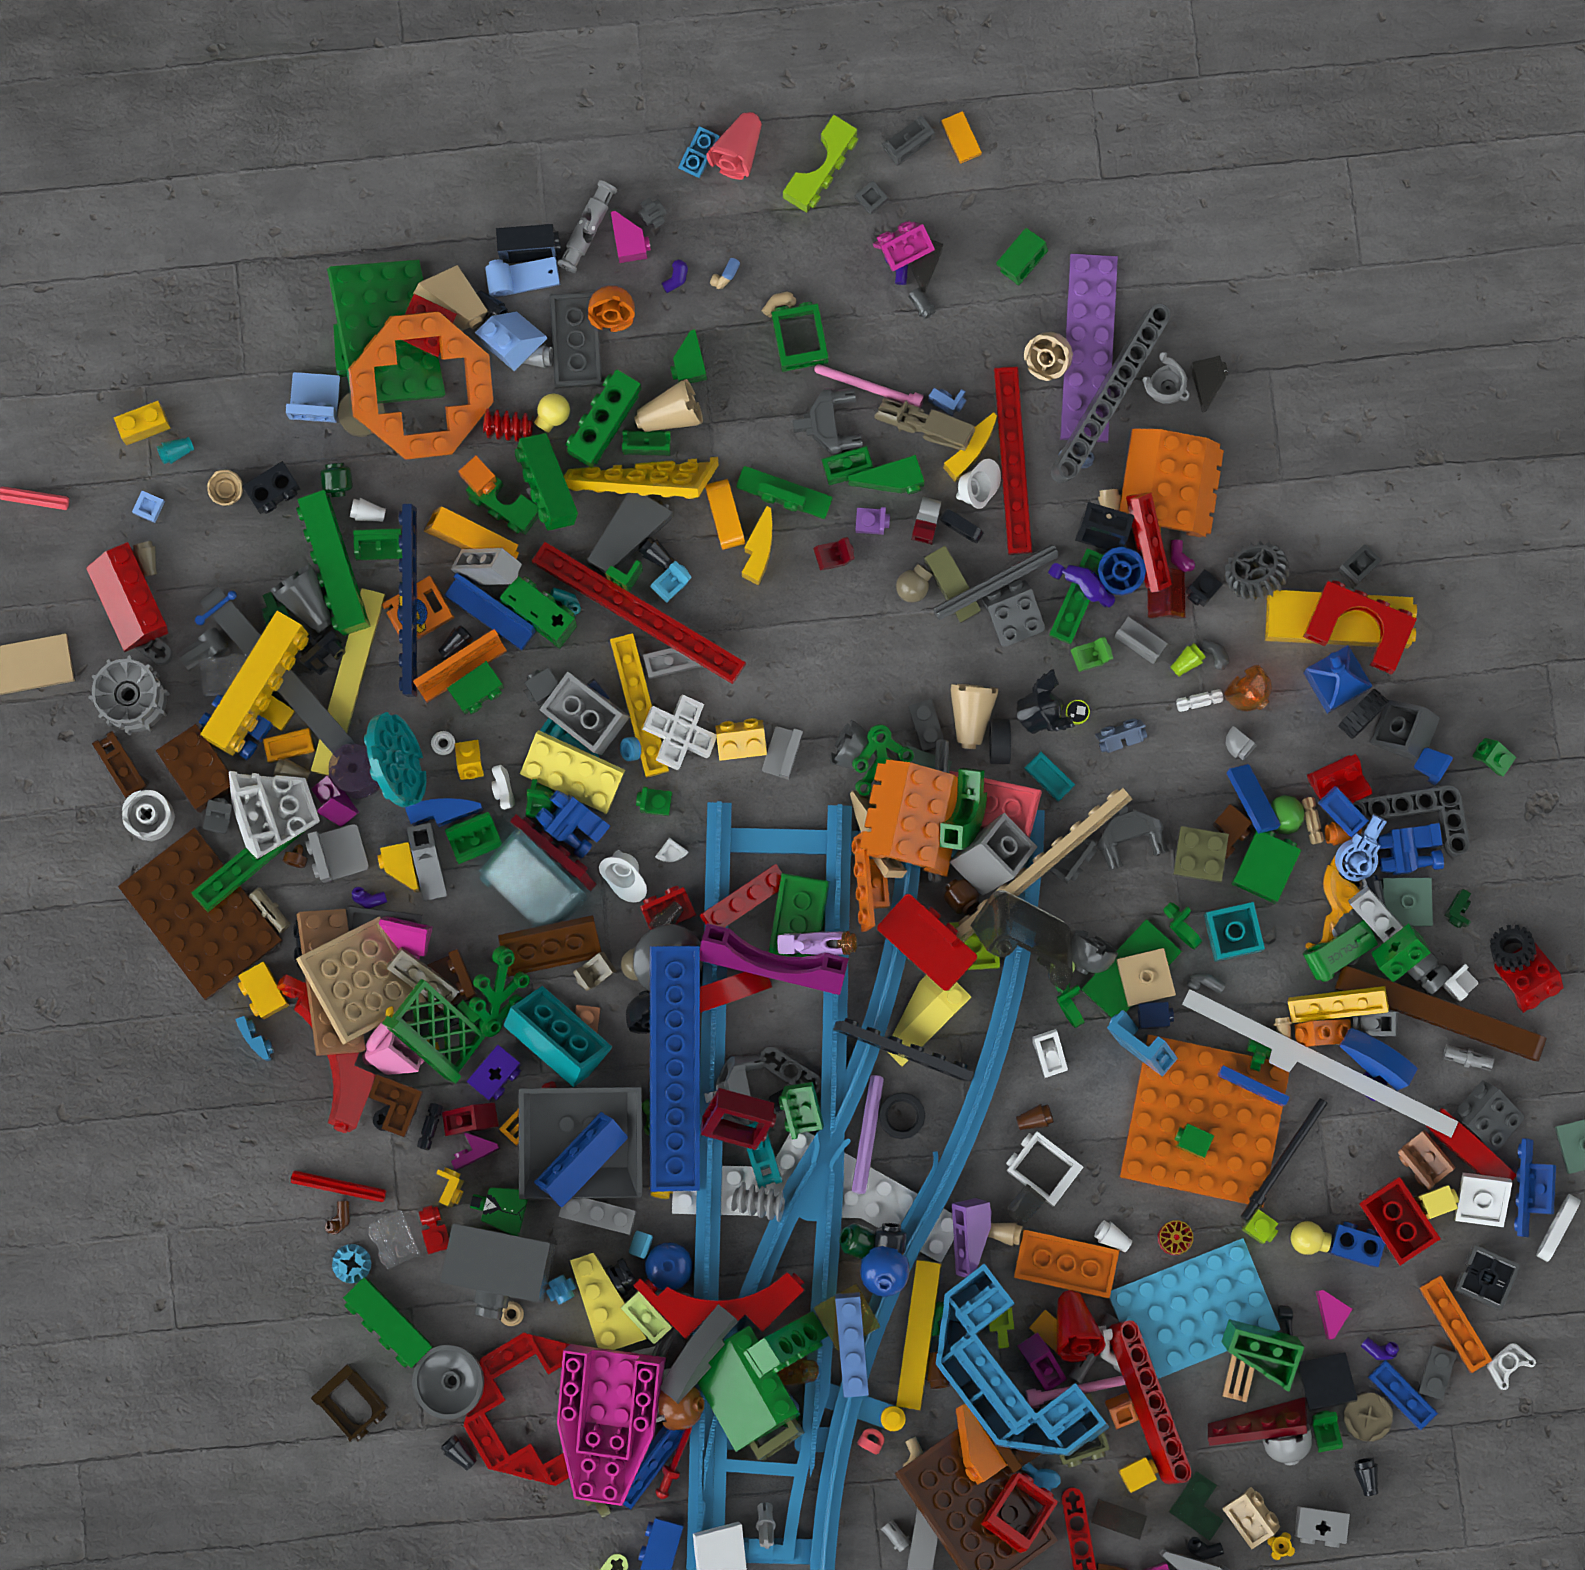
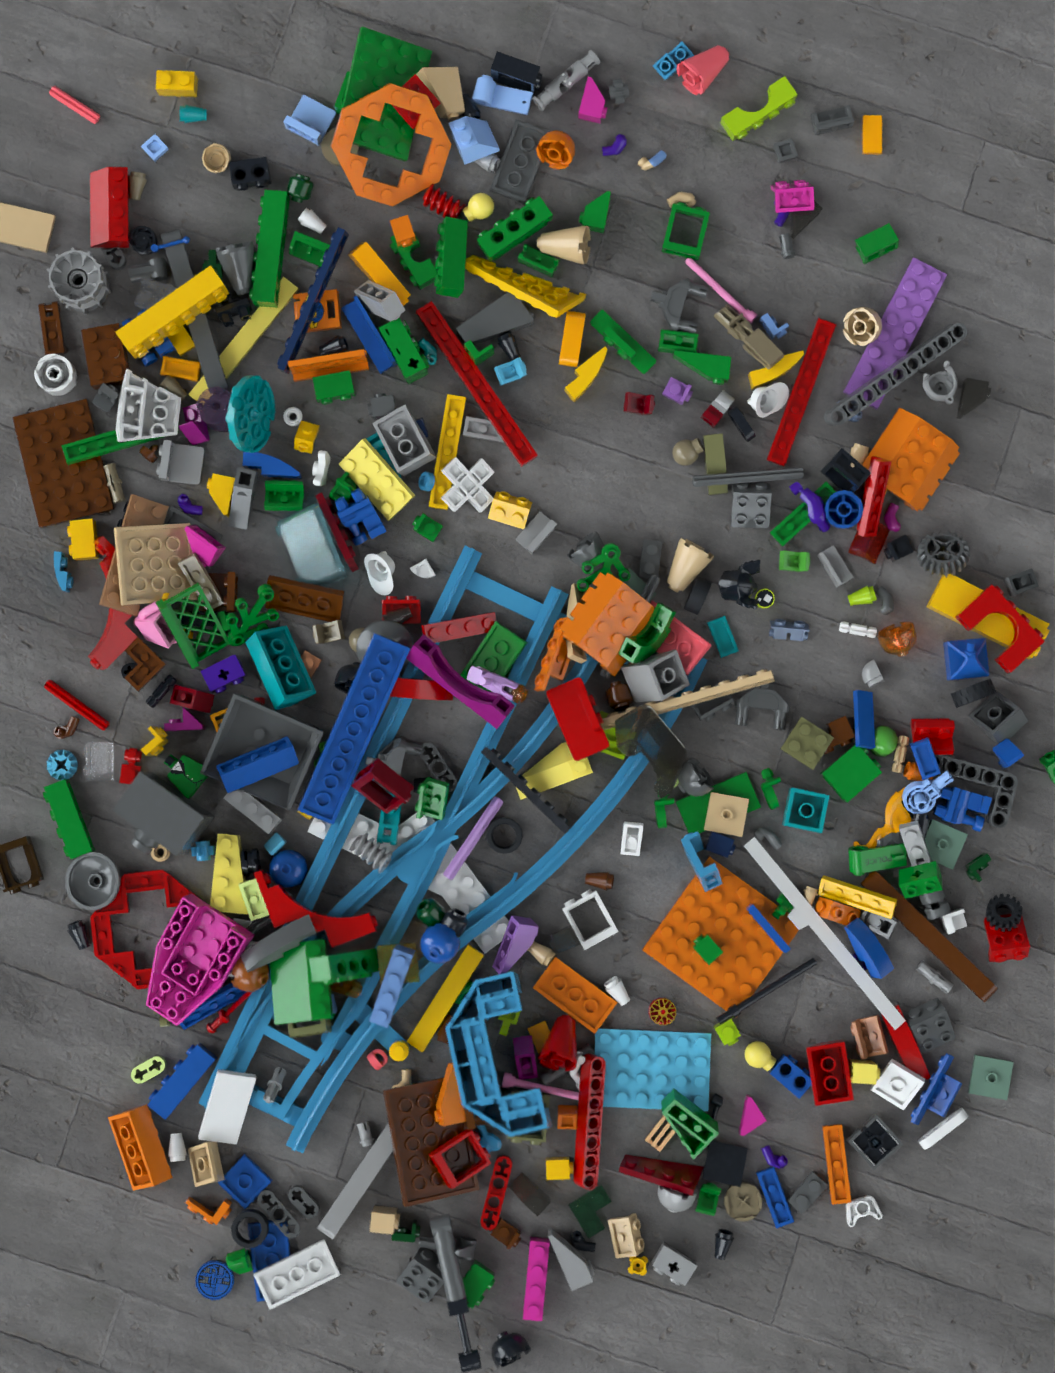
camera: 25 degrees right, 5 degrees up
(181, 617) = (142, 239): none -> black wheel

